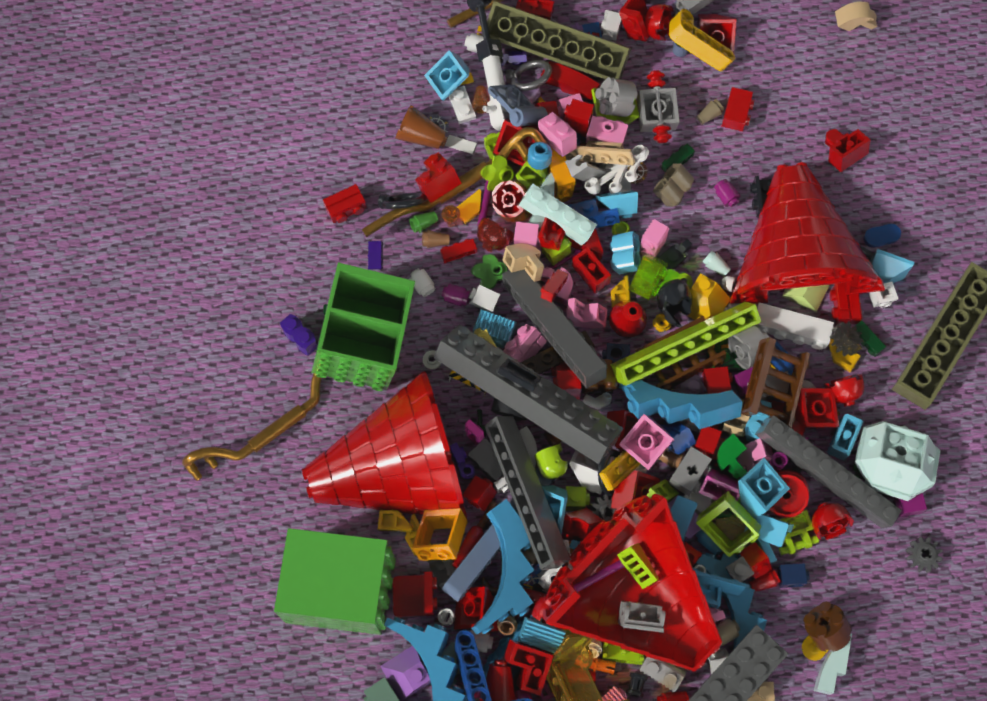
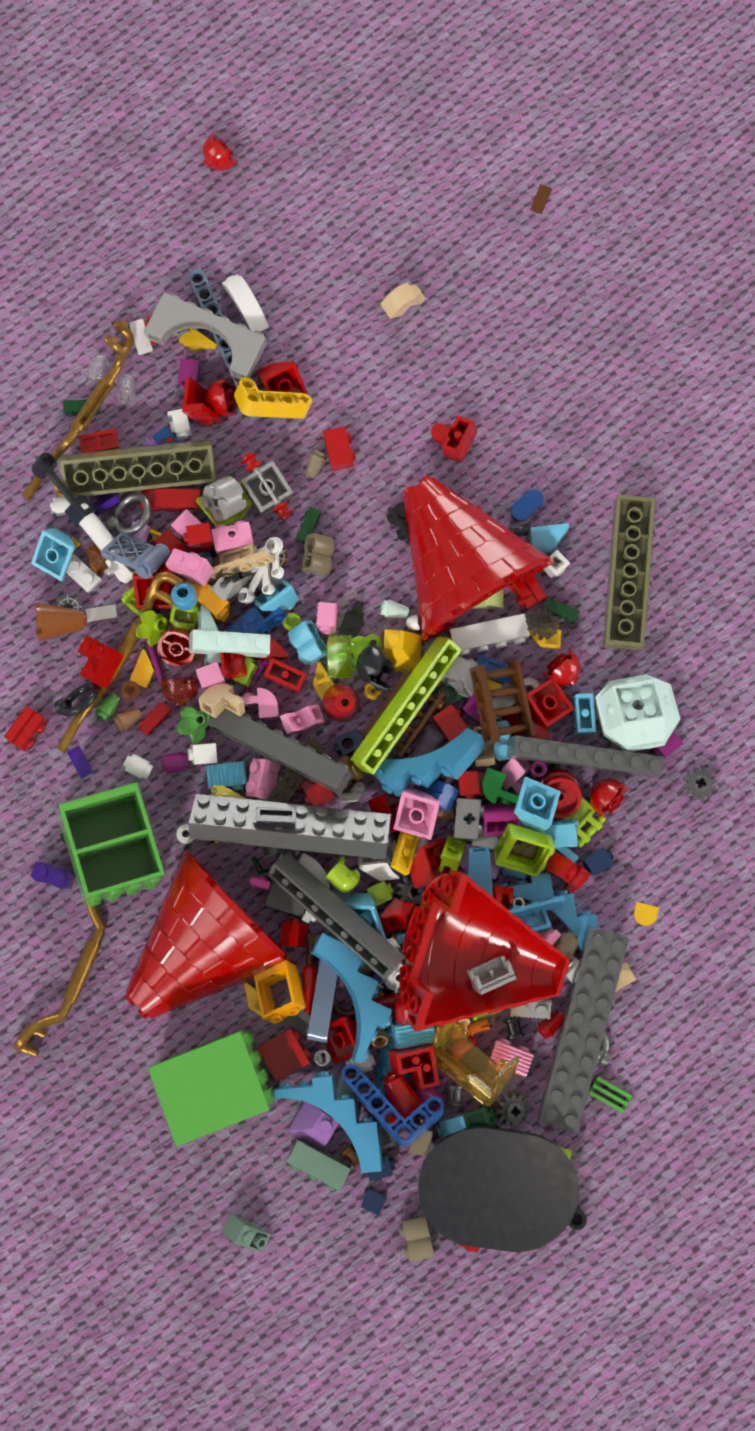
camera: 30 degrees left, 10 degrees up
(393, 521) = (231, 998): yellow tile -> none
(459, 455) = (257, 909): dark purple plate -> none
(554, 285) = (260, 711): red piece -> none
(598, 576) = (437, 958): magenta bar -> none
(629, 562) = (456, 927): lime slope -> none
(727, 193) = (370, 536): magenta brick -> none
(739, 570) = (552, 884): light grey plate -> none
(828, 627) = (649, 893): reddish brown brick -> none
(833, 666) = (669, 920): light aqua slope -> none

